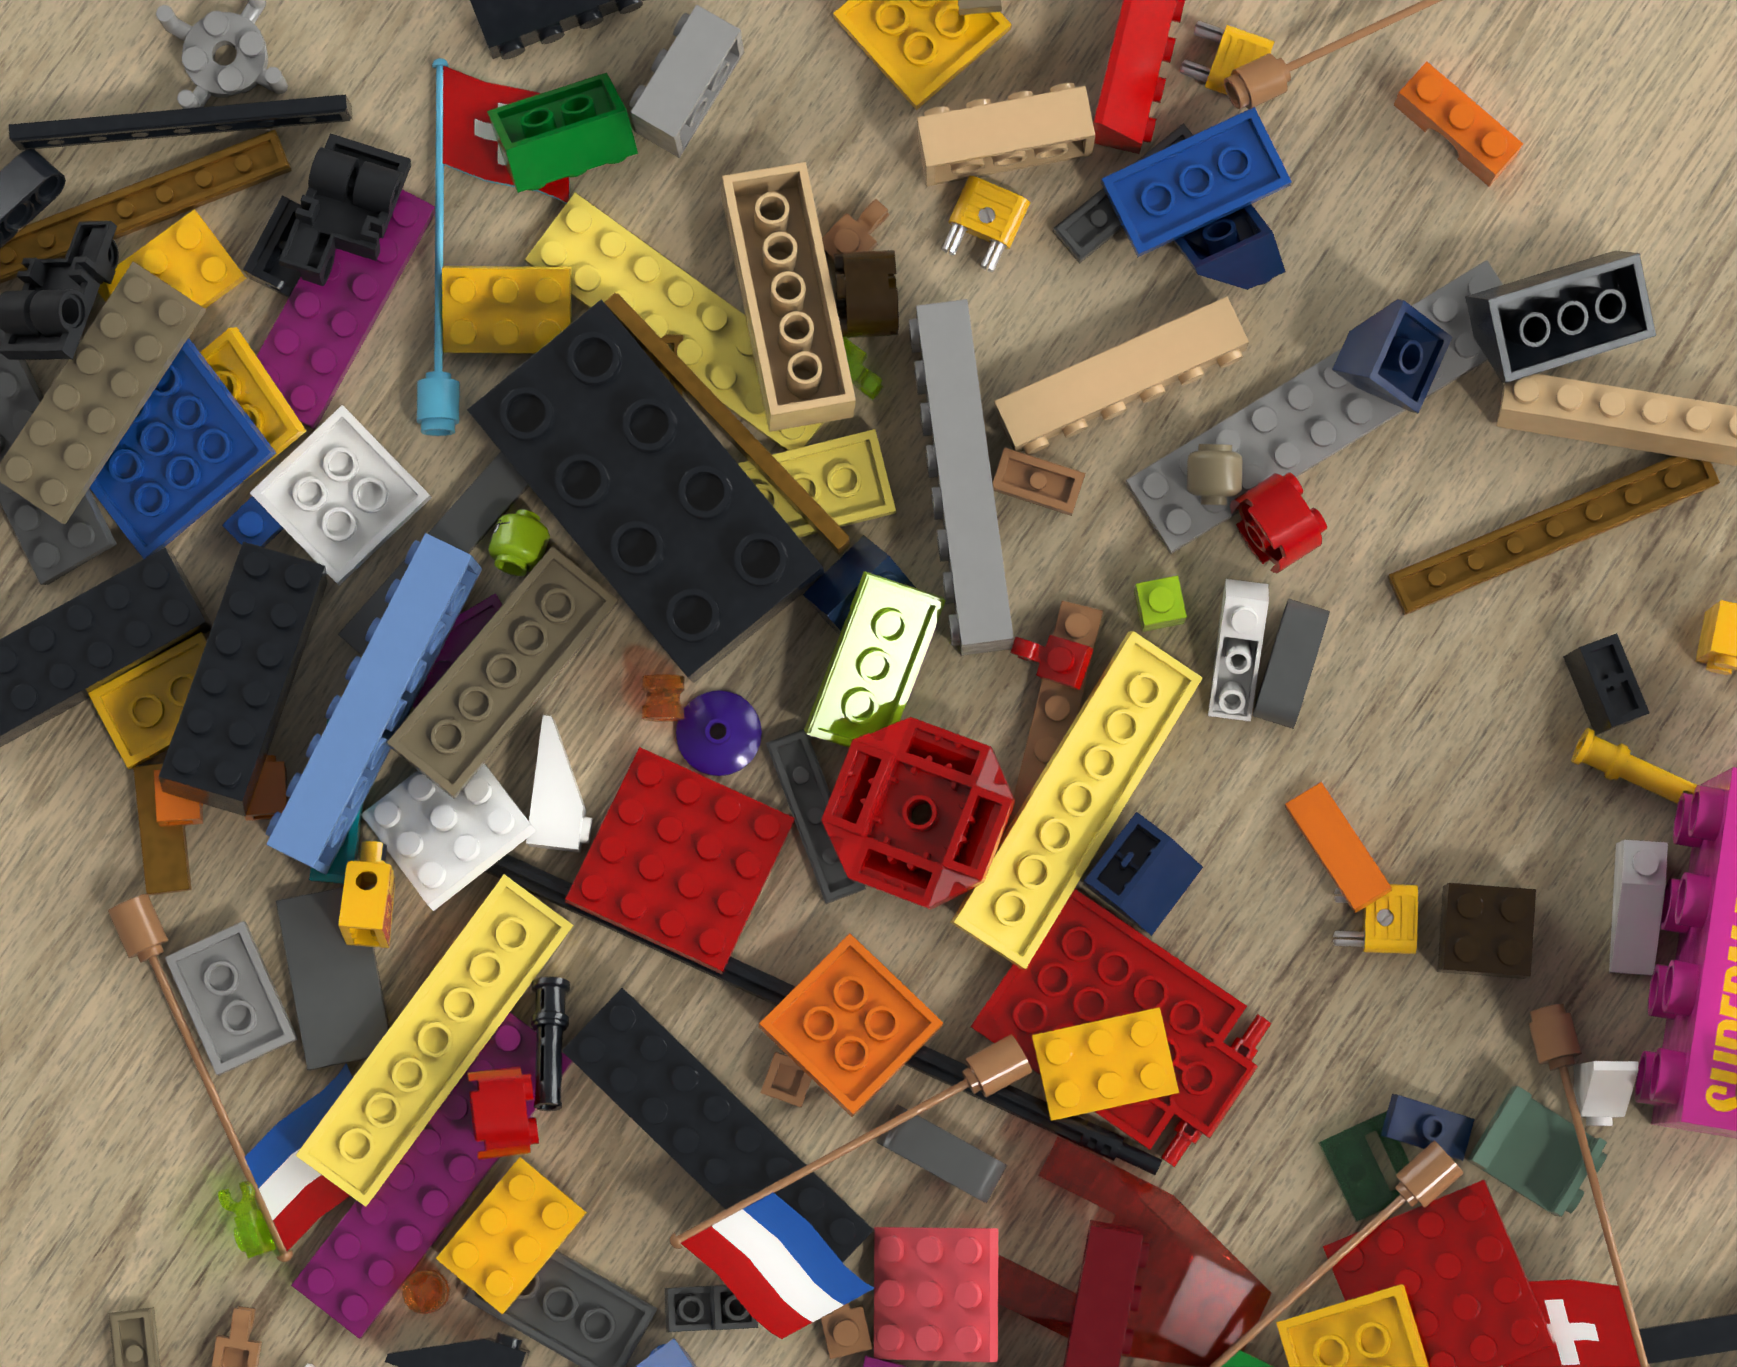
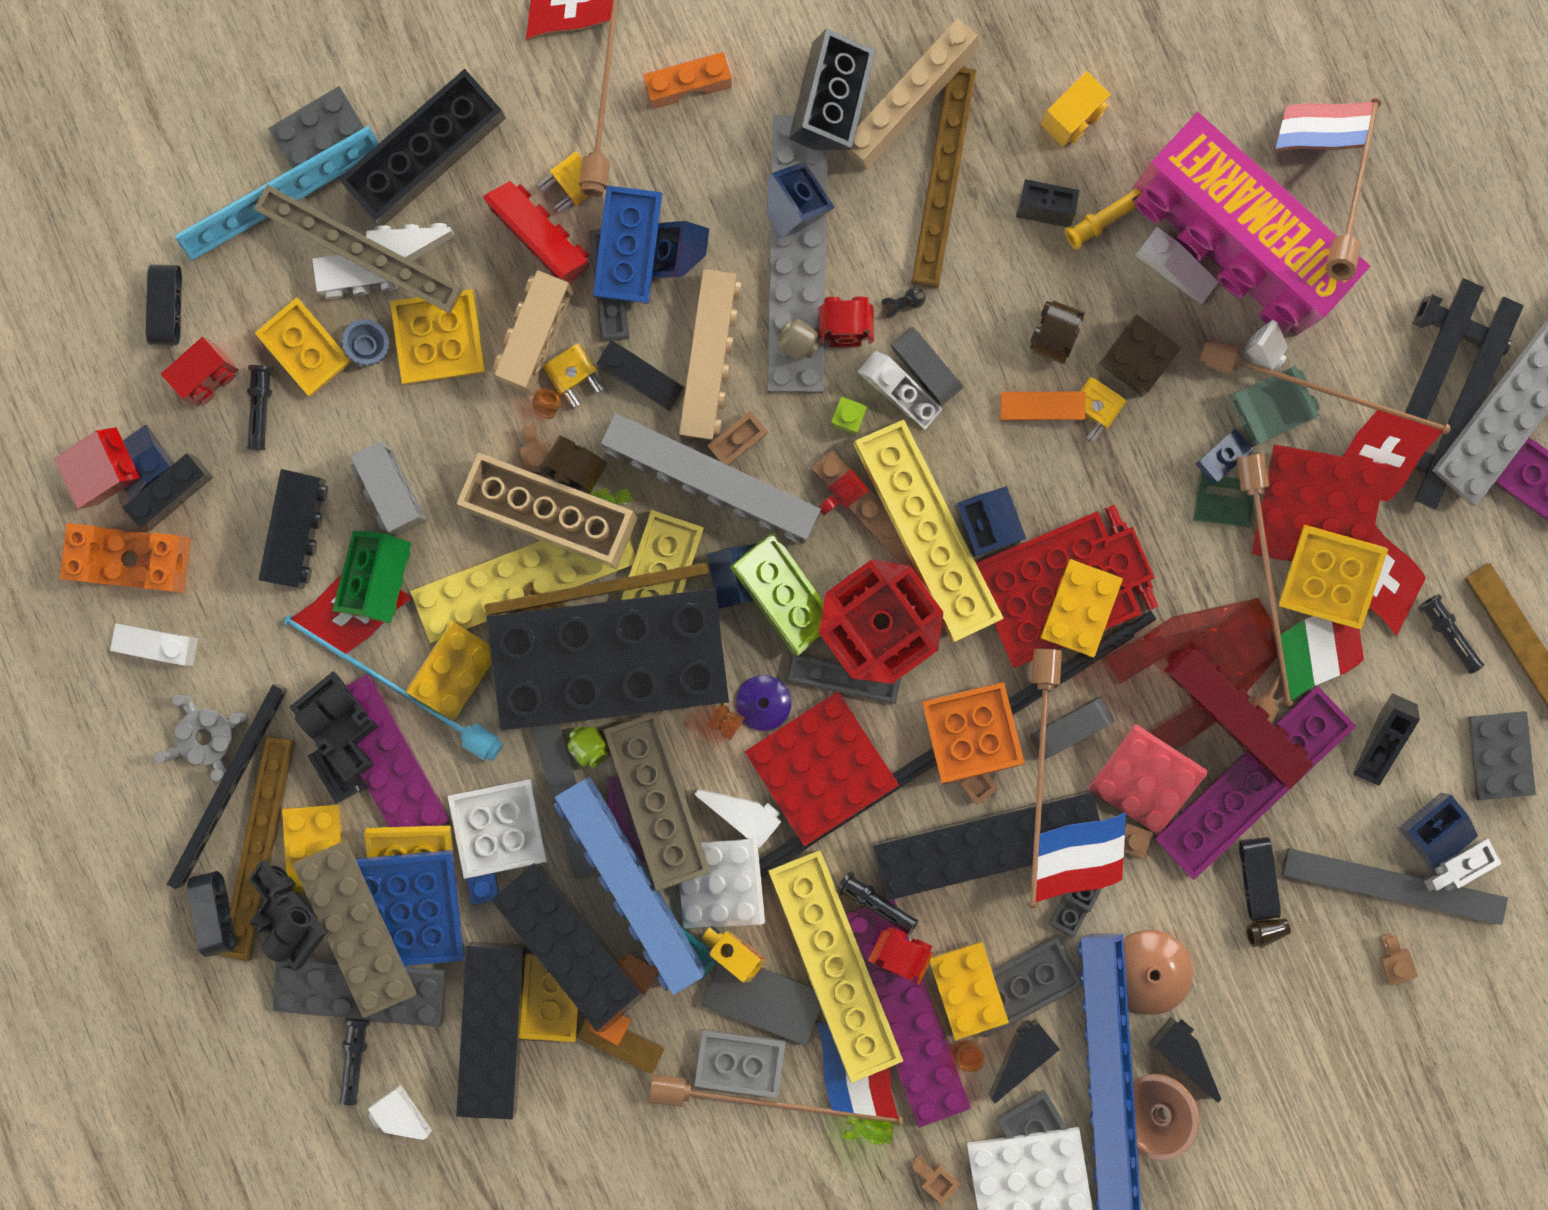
camera: 65 degrees left, 5 degrees up
(926, 210) = (546, 403): none -> clear orange tile
(1038, 304) = (639, 375): none -> black slope
(1364, 587) = (908, 300): none -> black arm
(1445, 801) = (1057, 332): none -> dark brown brick

